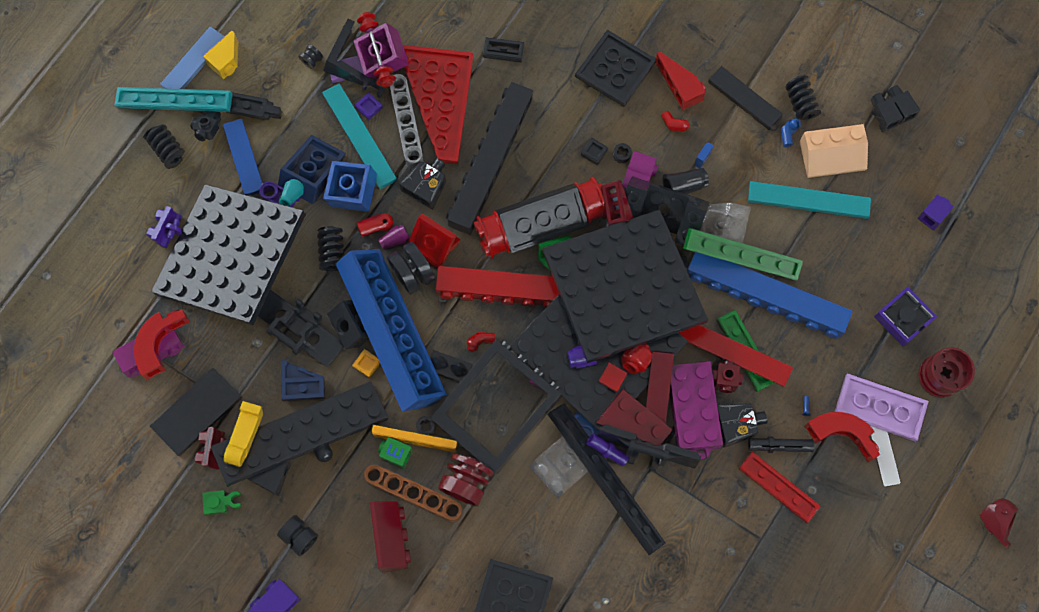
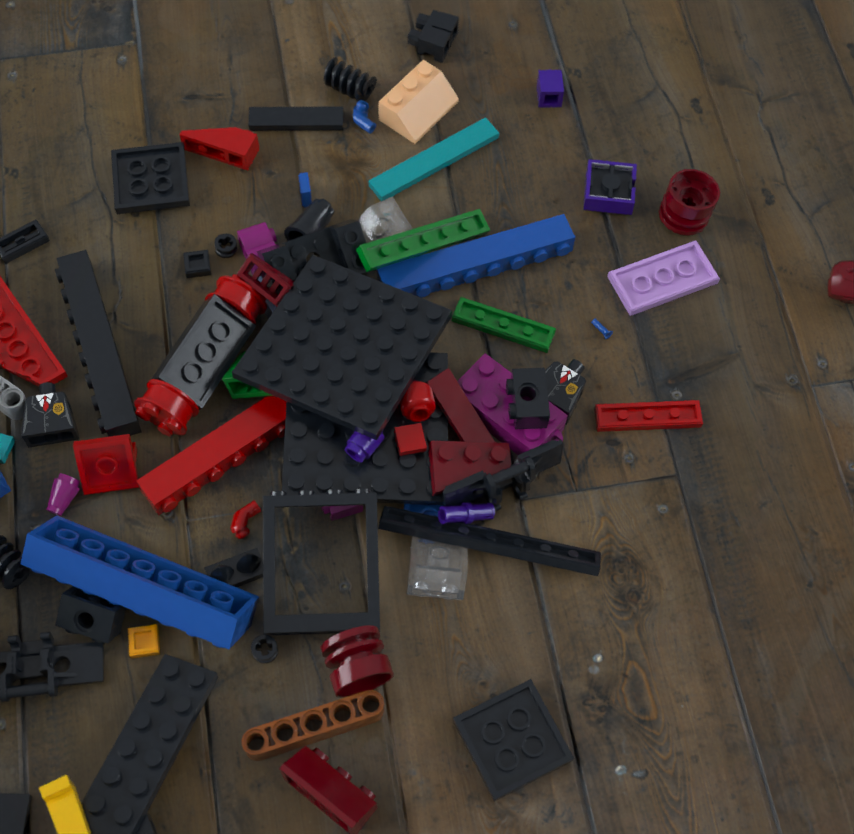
camera: 45 degrees left, 10 degrees down
(300, 383) = (88, 722): dark blue wing -> none
(324, 454) = (180, 771): black cylinder -> none
(374, 224) = (28, 498): red piece -> none
(395, 452) = (256, 702): green brick -> none
(410, 267) = (108, 505): black wheel -> none
(415, 438) = (264, 670): light orange tile -> none
(676, 125) = (251, 185): red arm -> none
(713, 405) = (529, 383): none -> black brick
(726, 384) = (512, 354): dark red brick -> none
(738, 353) = (502, 330): red tile -> none
(789, 445) = (605, 384): black pin -> none
(847, 425) = (653, 313): red arch -> none
(886, 458) = (707, 316): white sticker -> none

